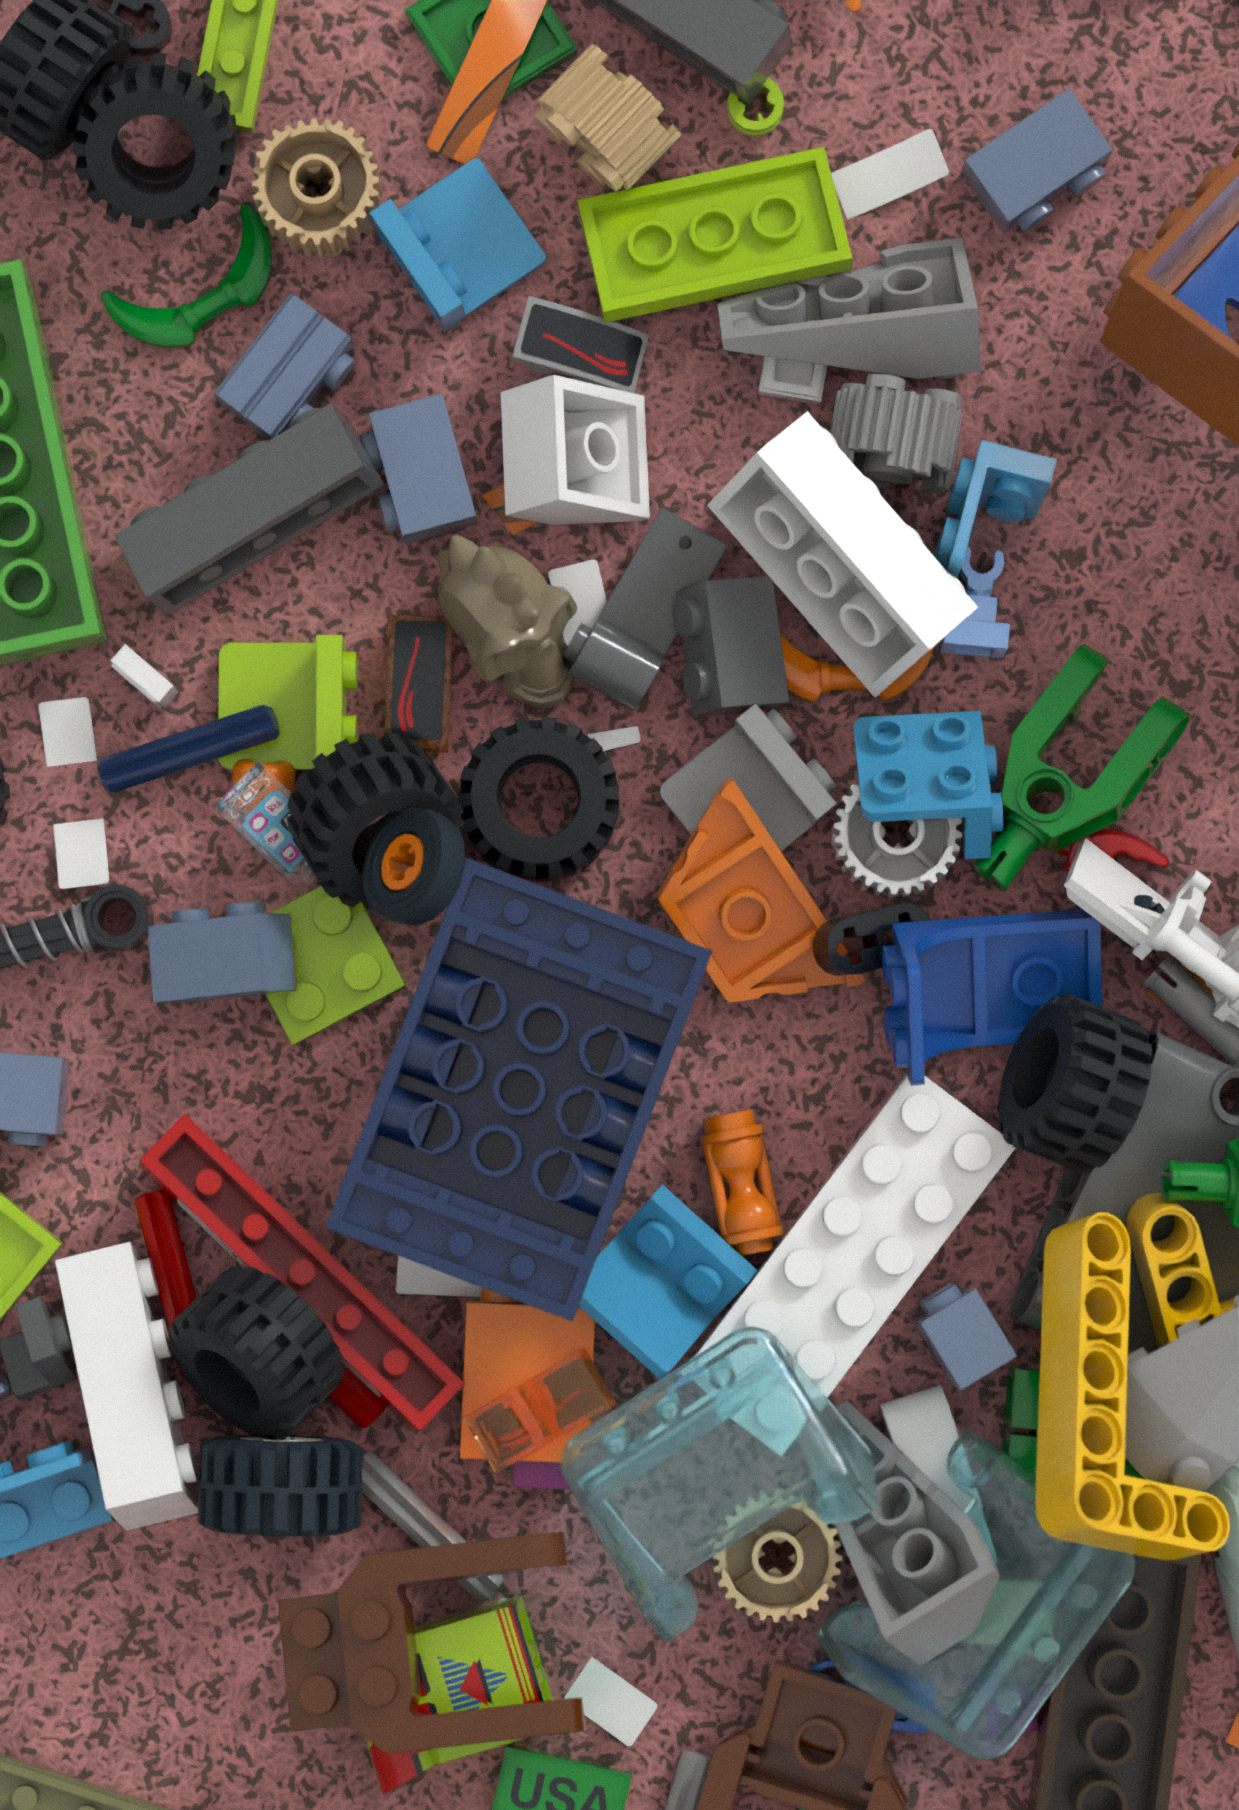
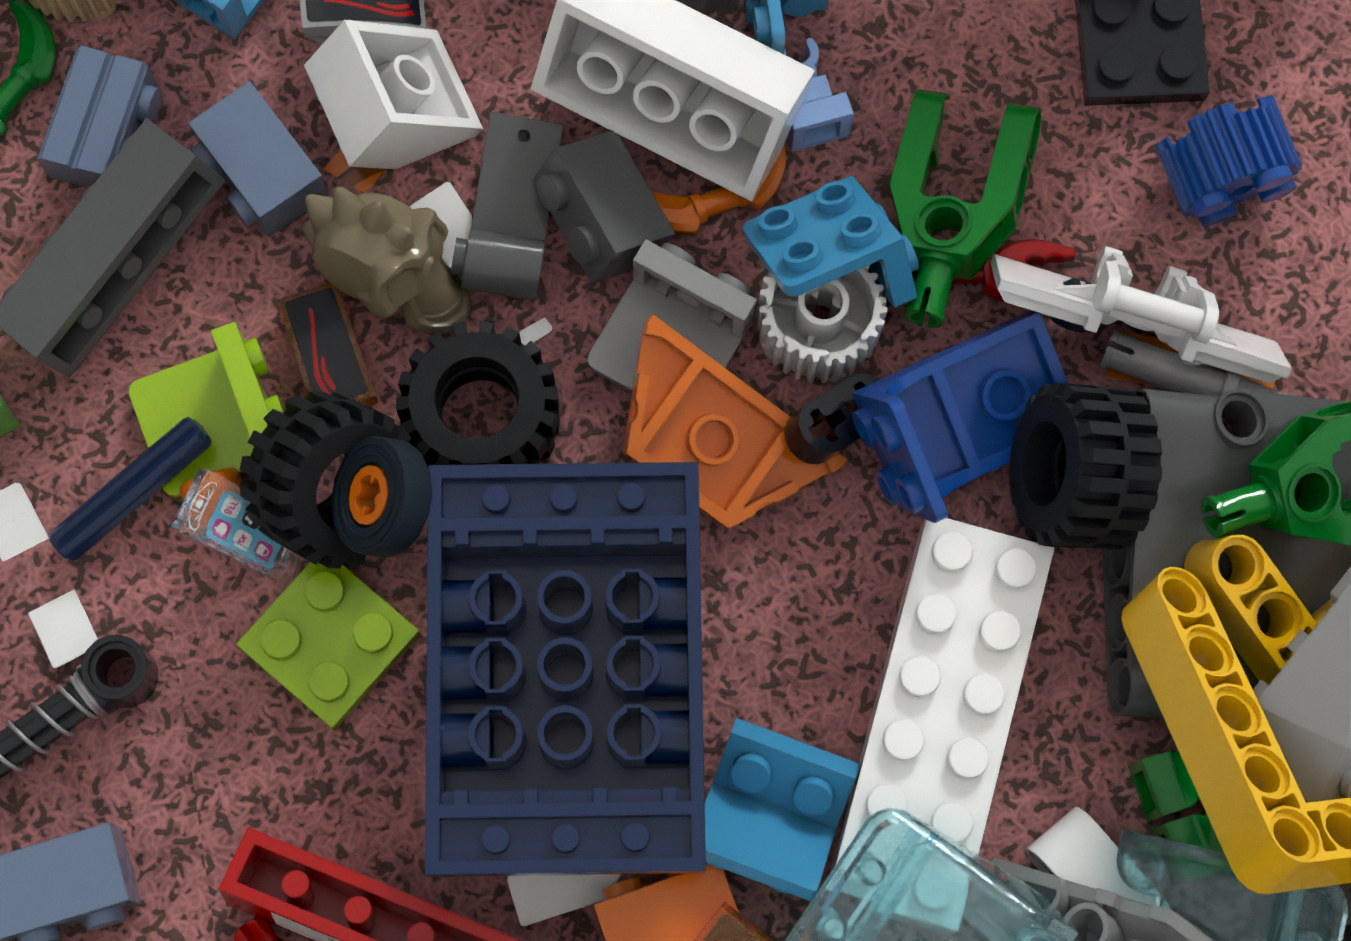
camera: 25 degrees left, 10 degrees down
(144, 677) = (64, 440): white tile -> none
(221, 956) = (230, 665): sand blue brick -> none
(735, 1150) = (793, 665): orange piece -> none
(962, 1334) = (1079, 745): sand blue brick -> none

